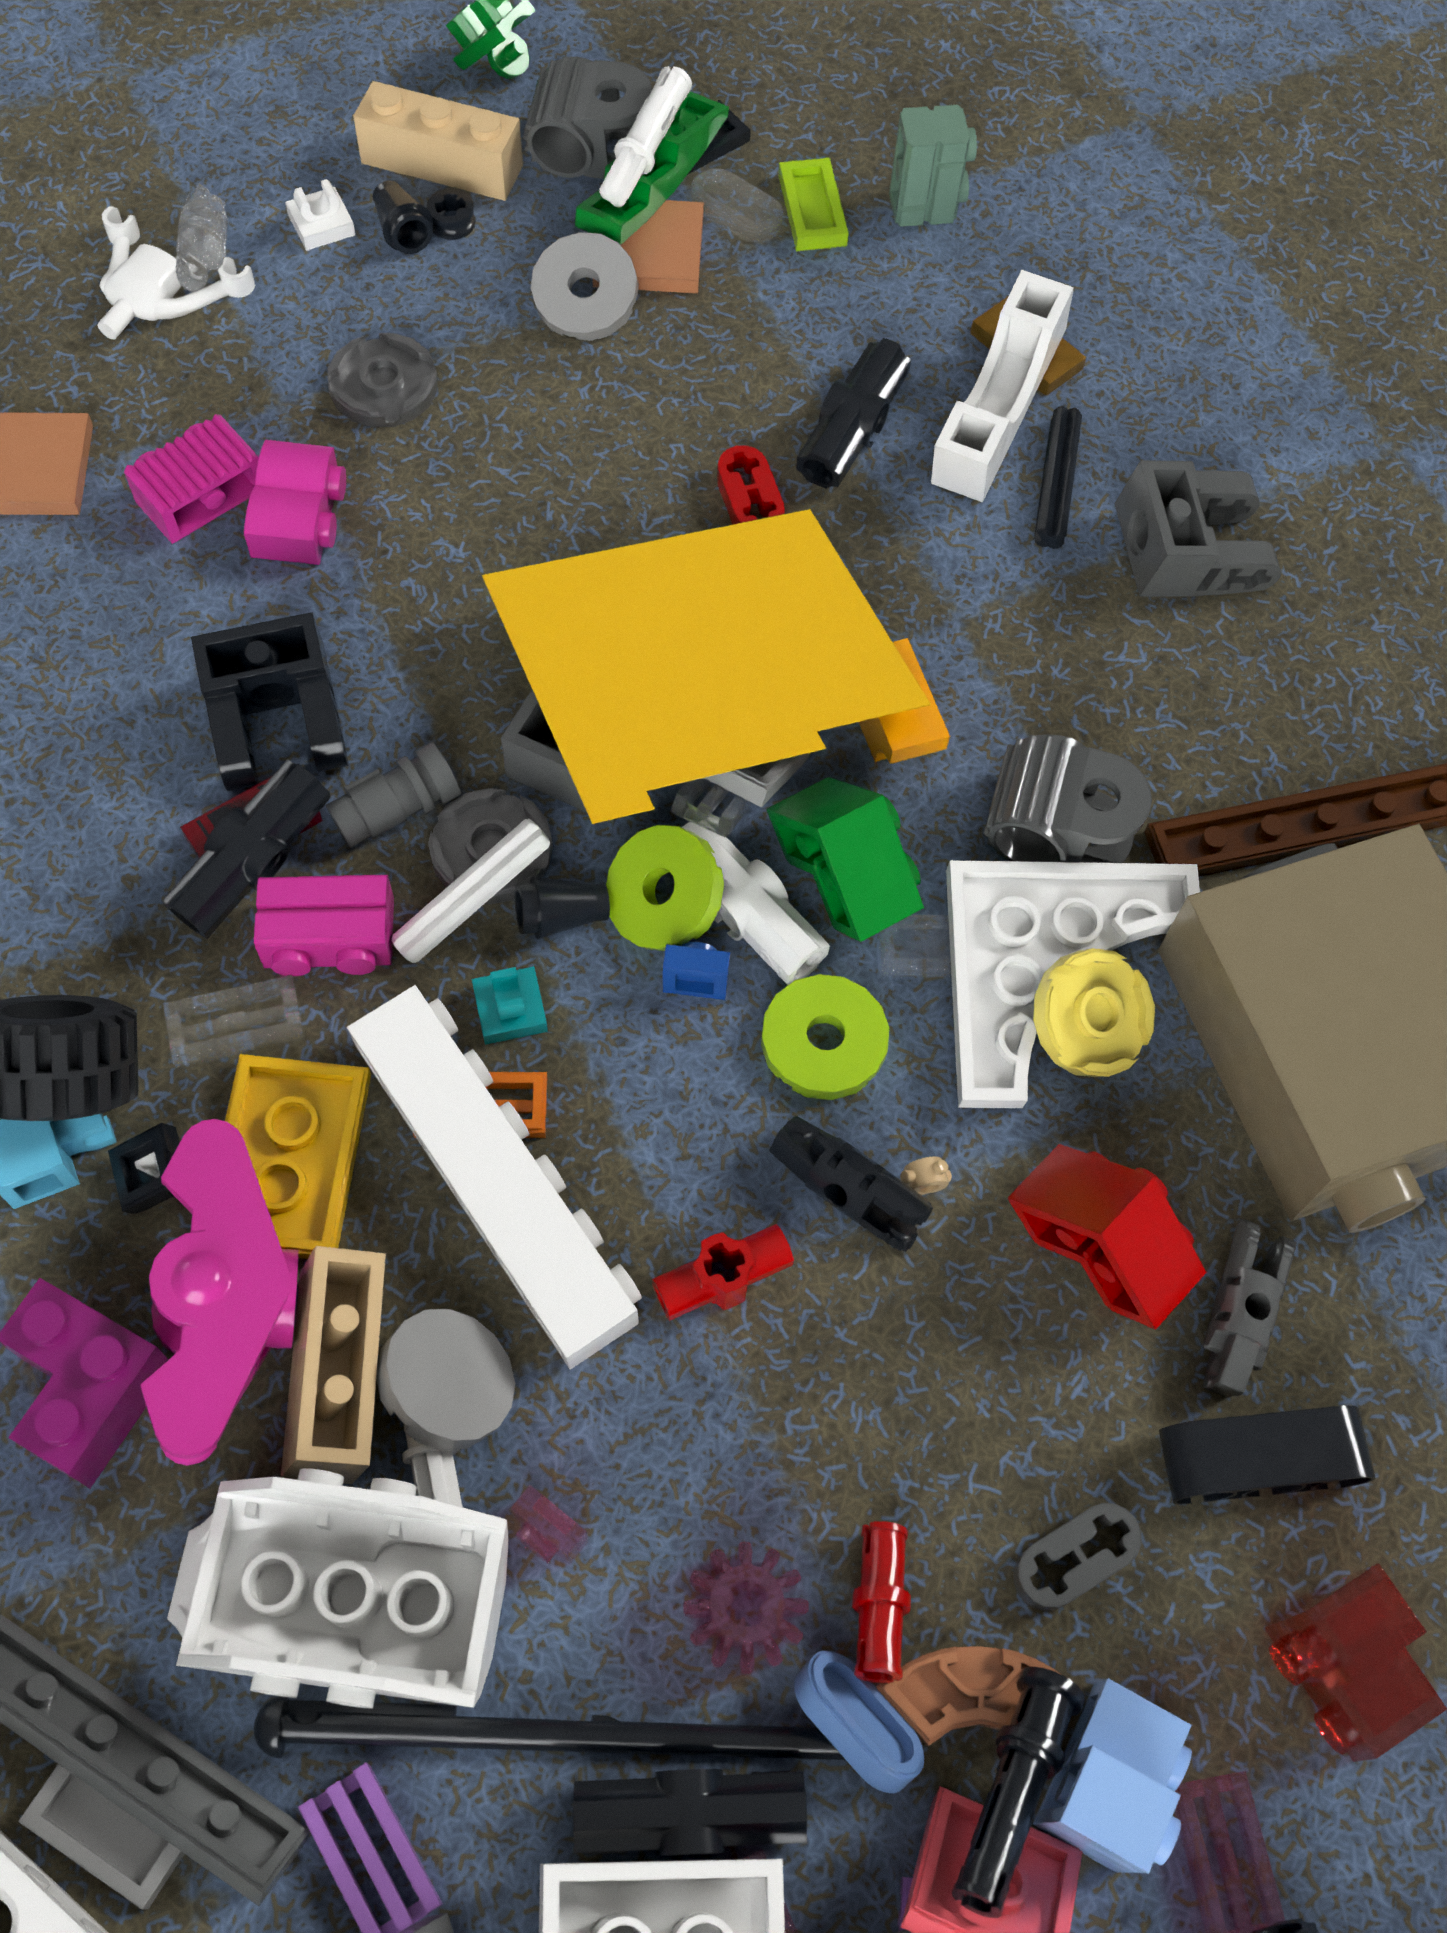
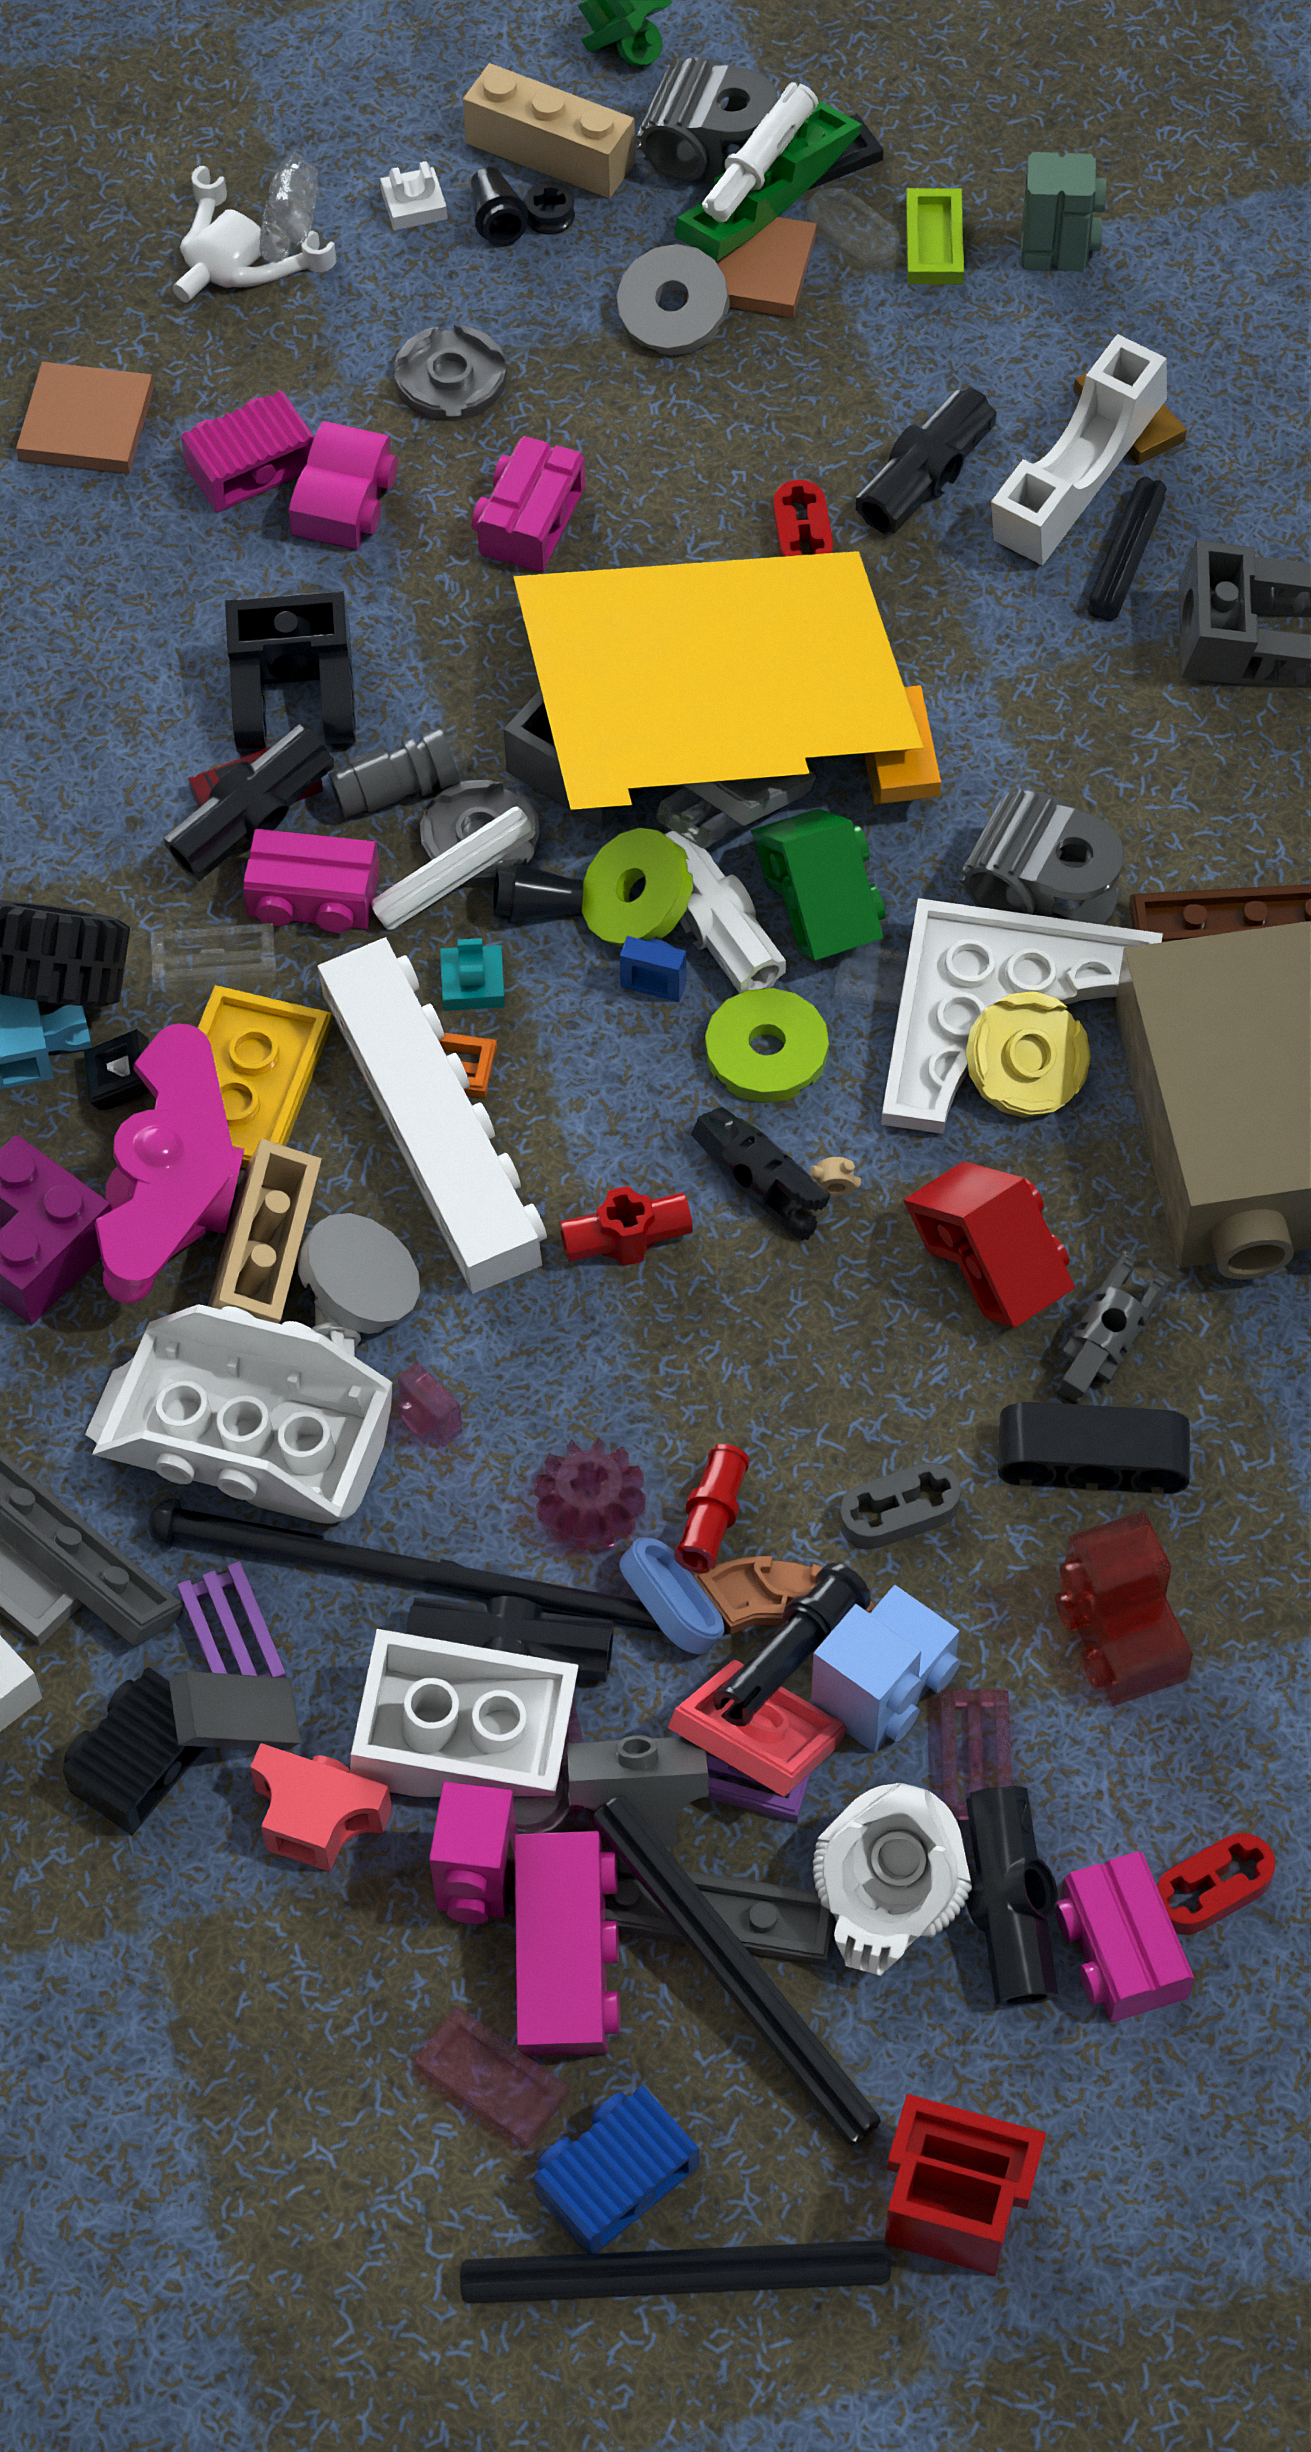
camera: 15 degrees right, 5 degrees down
(482, 498) = (530, 503): none -> dark pink brick

